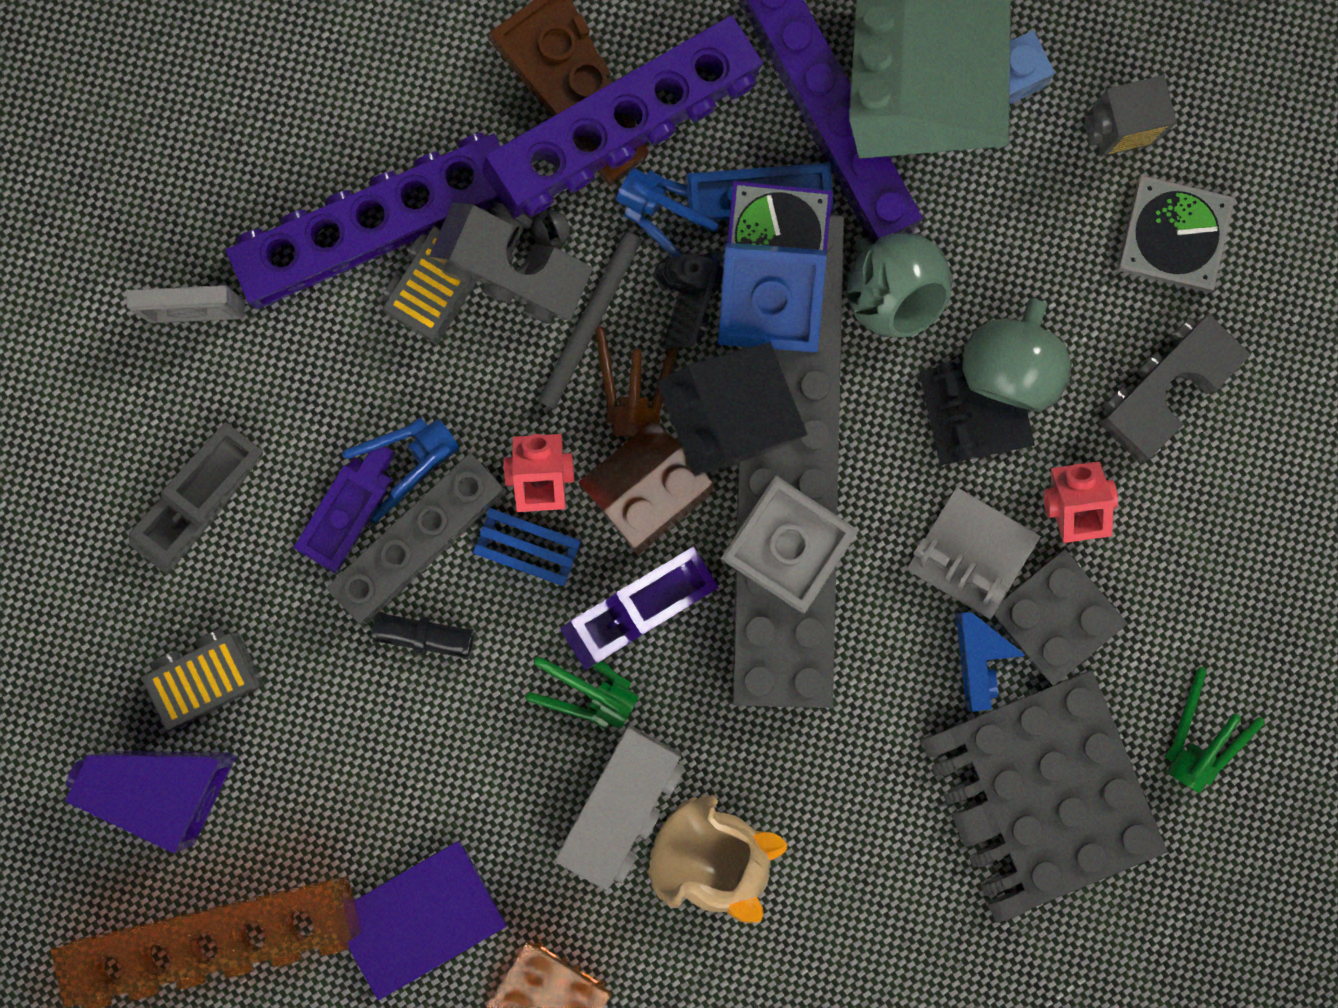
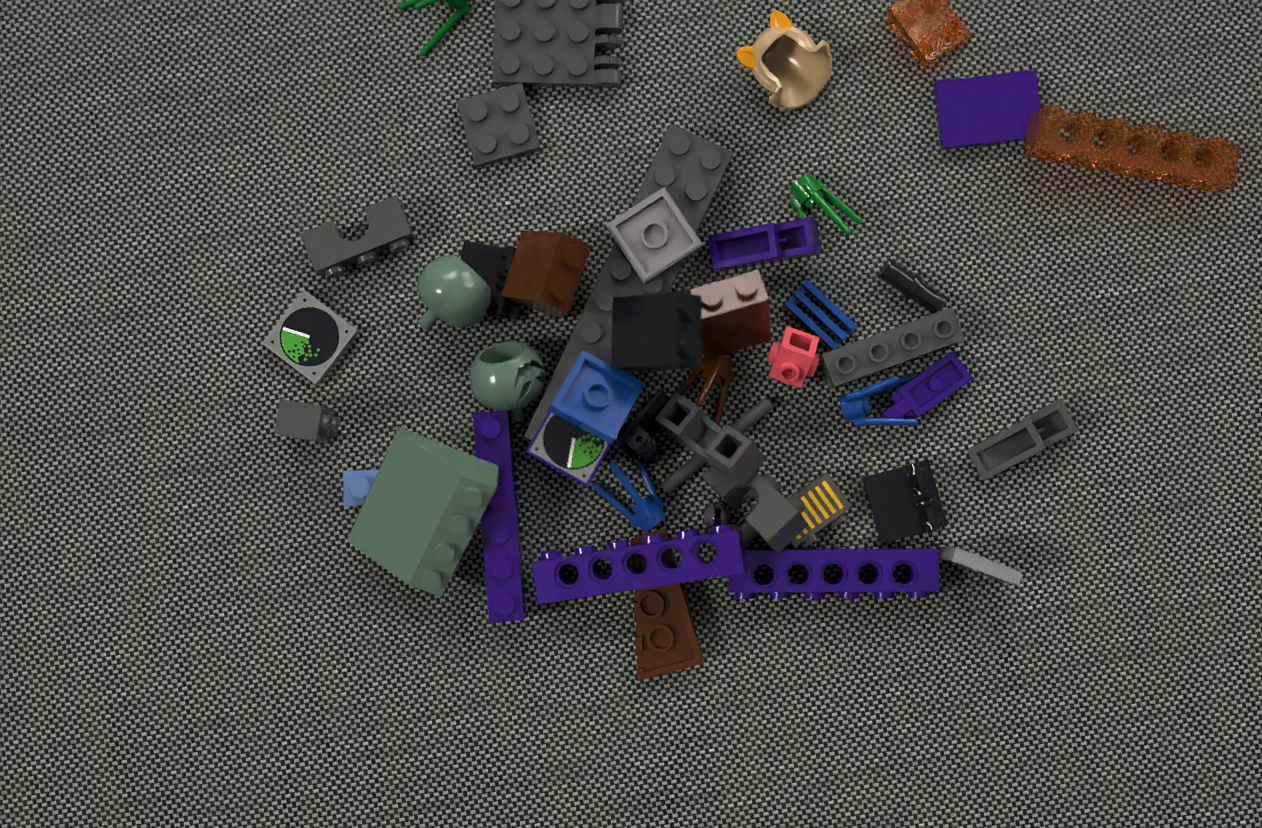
camera: 155 degrees left, 0 degrees up
(151, 792) = (1130, 259): dark purple slope -> none
(202, 679) = (1066, 318): dark grey brick -> none
(315, 352) = (904, 501): none -> black hinge
(602, 313) = (718, 446): none -> dark grey arch
(620, 809) = (833, 119): light grey brick -> none
(712, 191) = (601, 493): blue tile -> none
(909, 435) = (546, 271): none -> reddish brown slope
(973, 553) = (534, 187): light grey hinge -> none
(976, 646) = (559, 125): blue slope -> none
(1081, 501) = (451, 188): coral brick -> none

